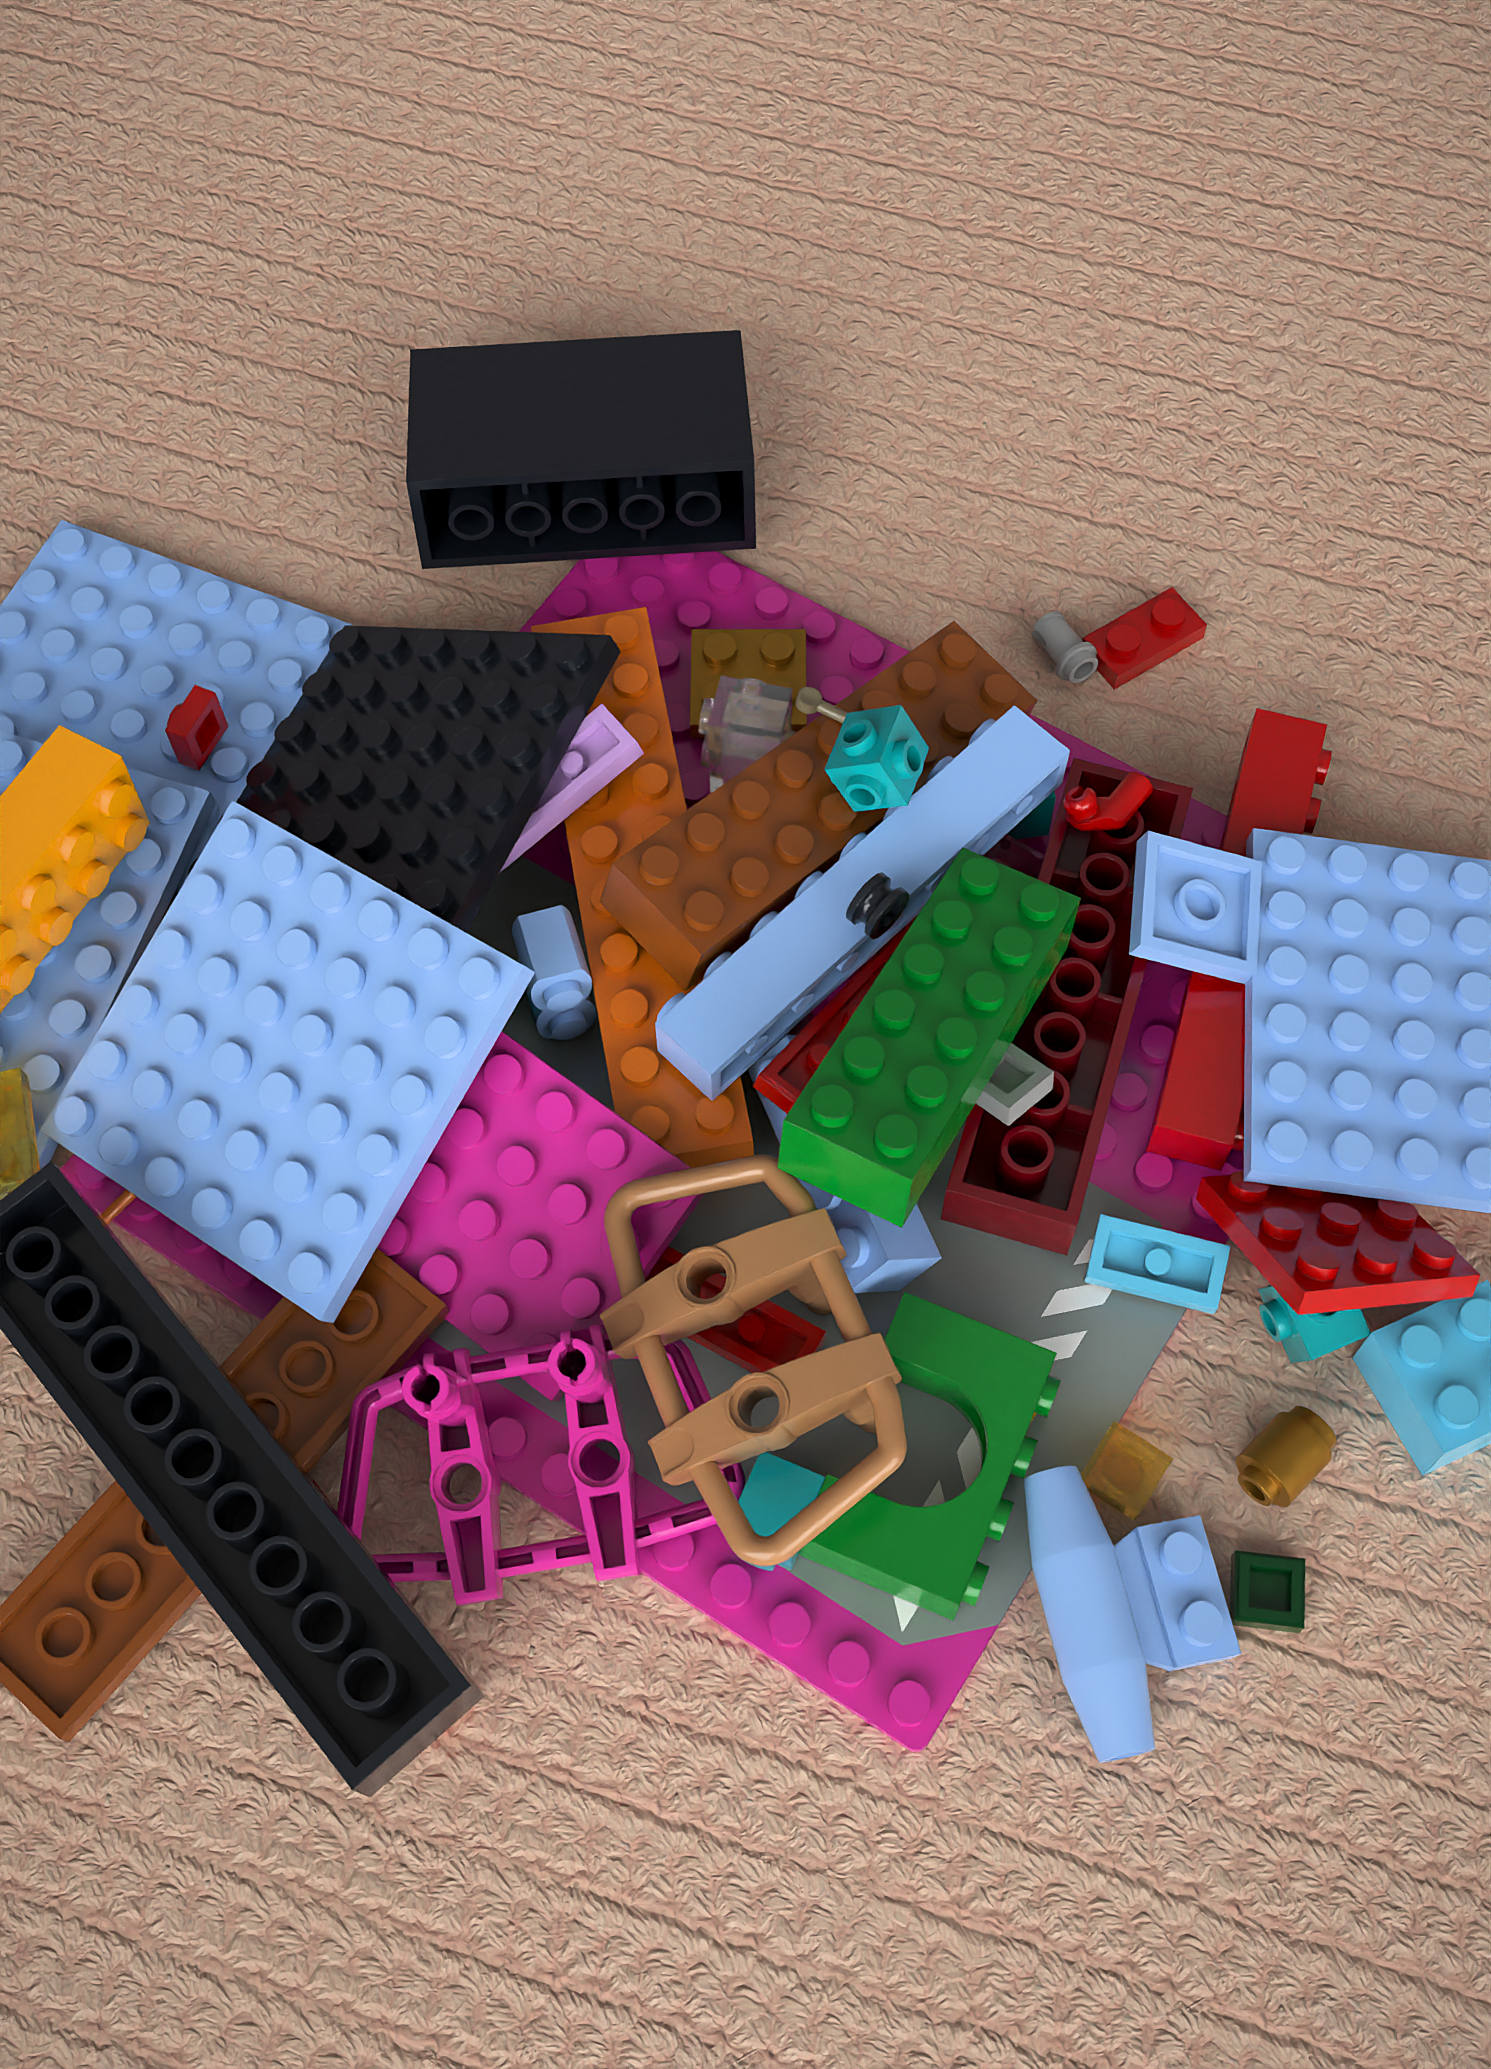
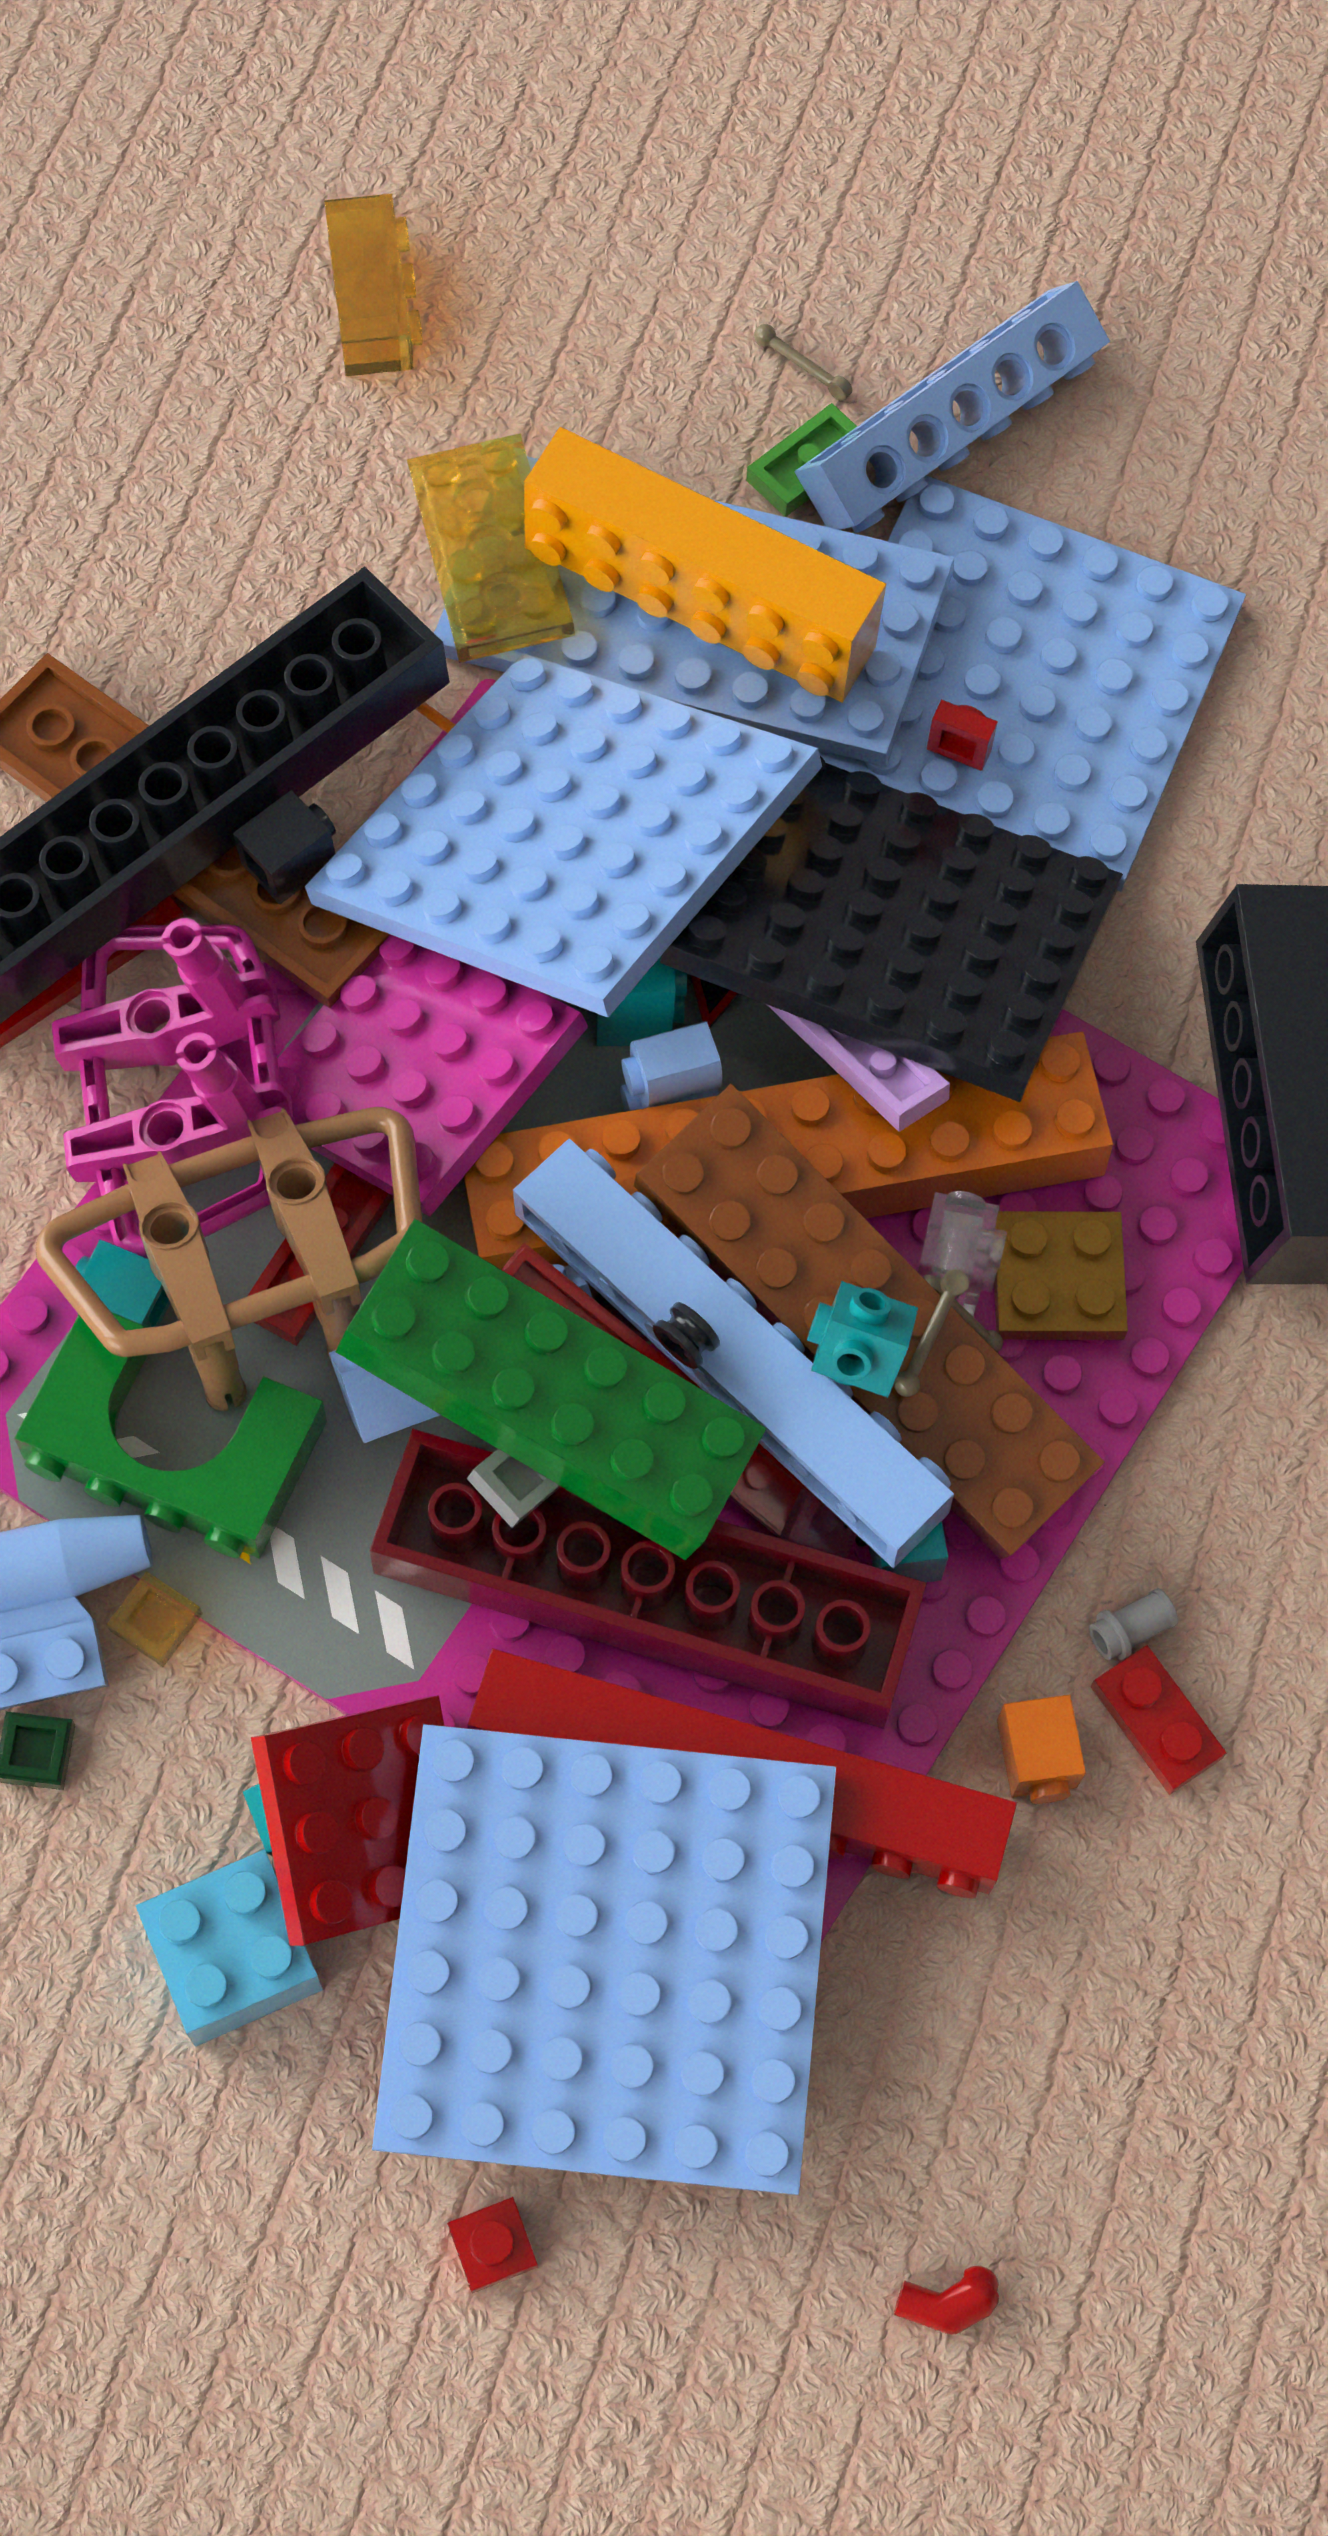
camera: 85 degrees right, 5 degrees up
(266, 1342) = (286, 845): none -> black brick
(1094, 813) = (848, 1607): red arm -> none
(1157, 1264) = (360, 1654): medium azure plate -> none
(1184, 713) = (1041, 1748): none -> orange brick
(1196, 907) = (727, 1691): light blue plate -> none
(1285, 1457) = (158, 1772): pearl gold brick -> none

